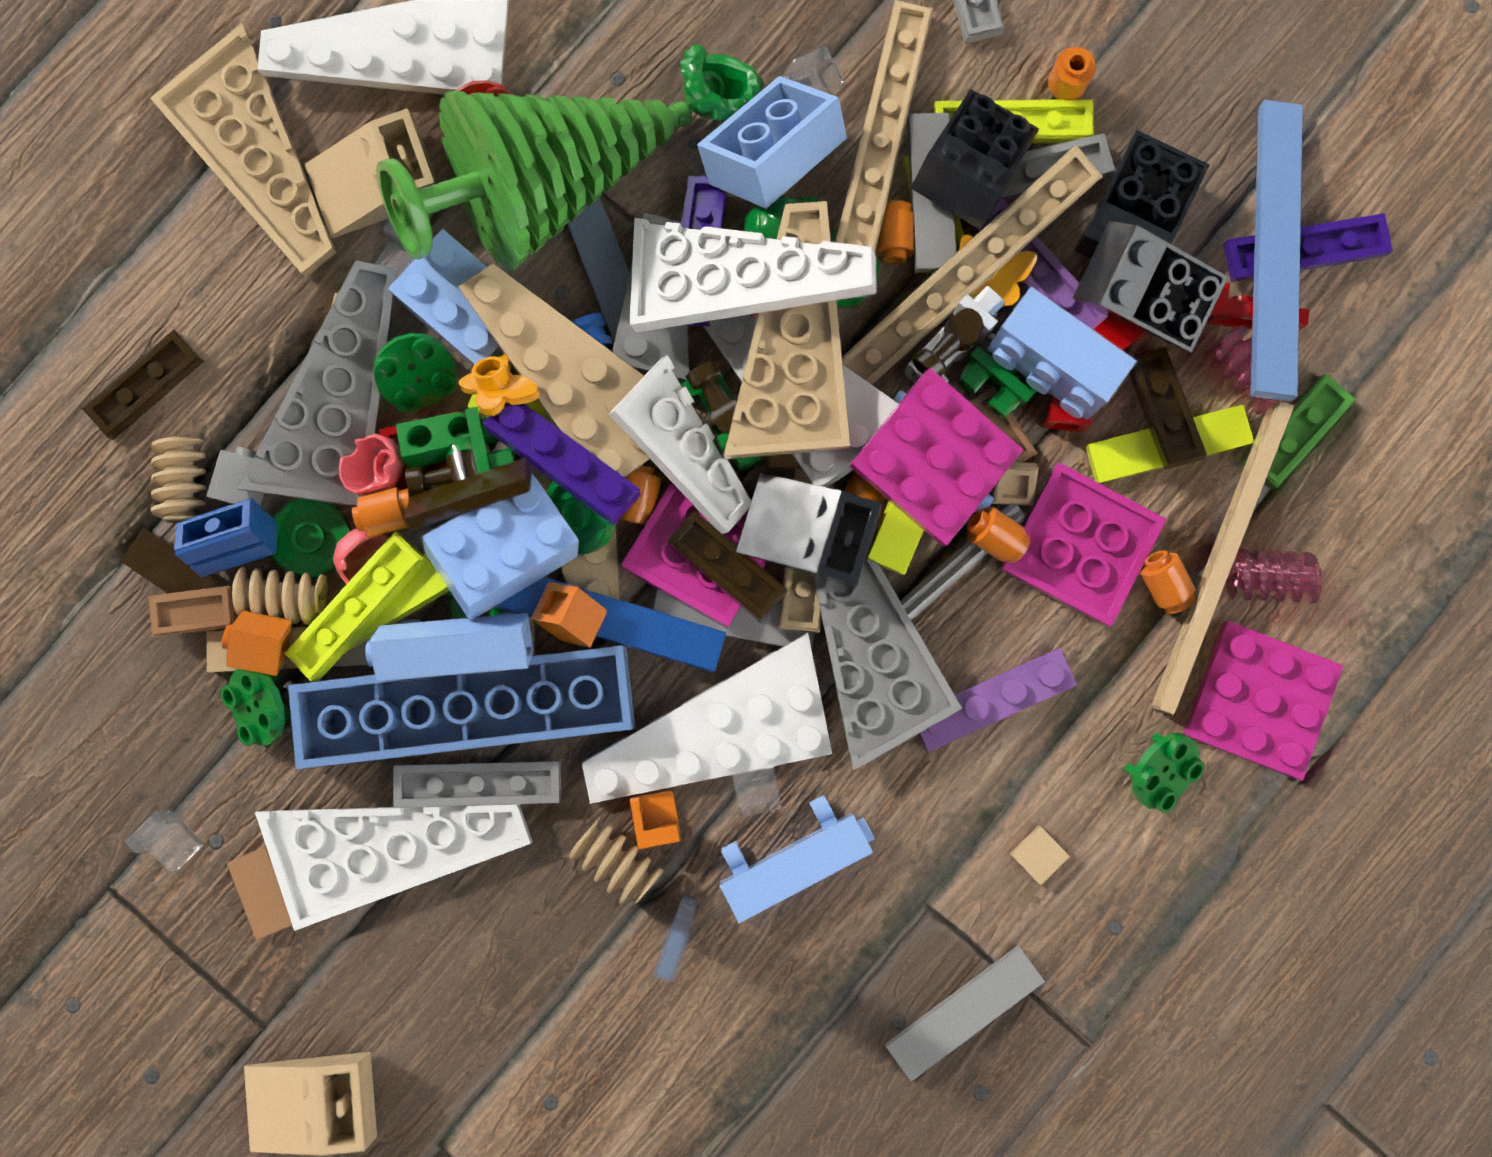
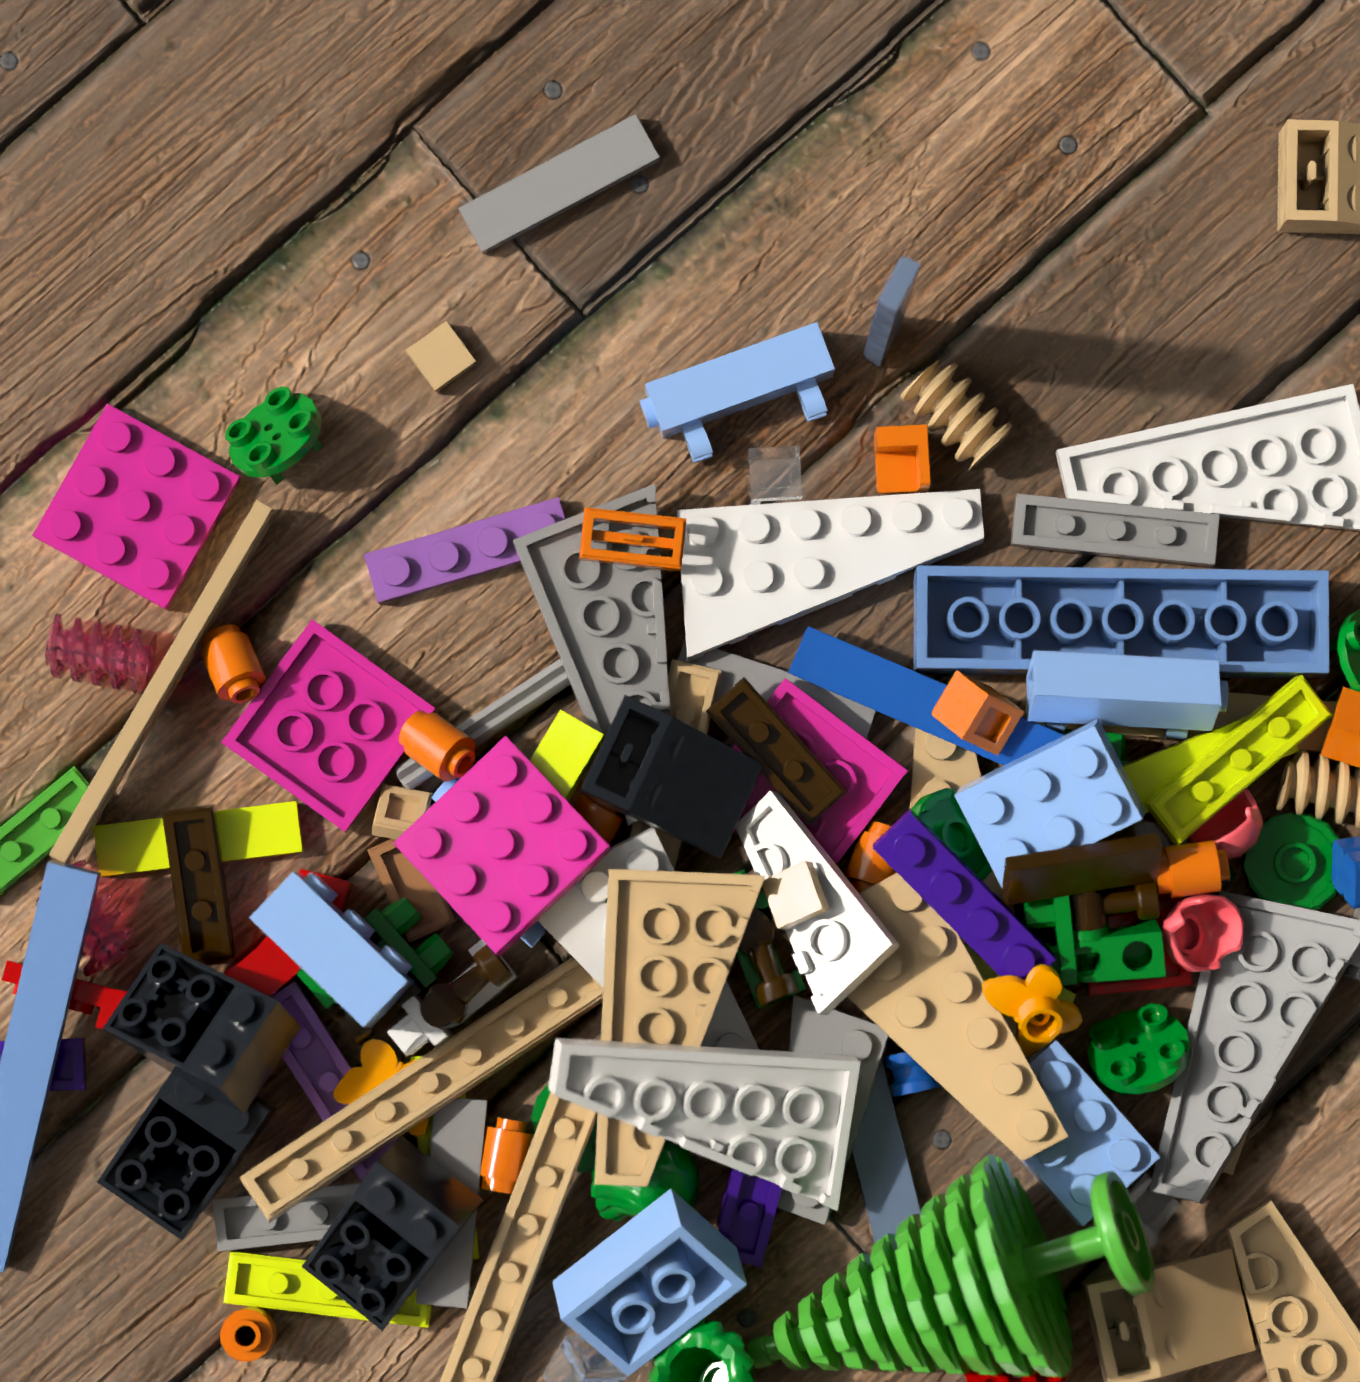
camera: 175 degrees left, 0 degrees up
(697, 446) = (795, 895): none -> tile
(901, 720) = (632, 559): none -> orange tile

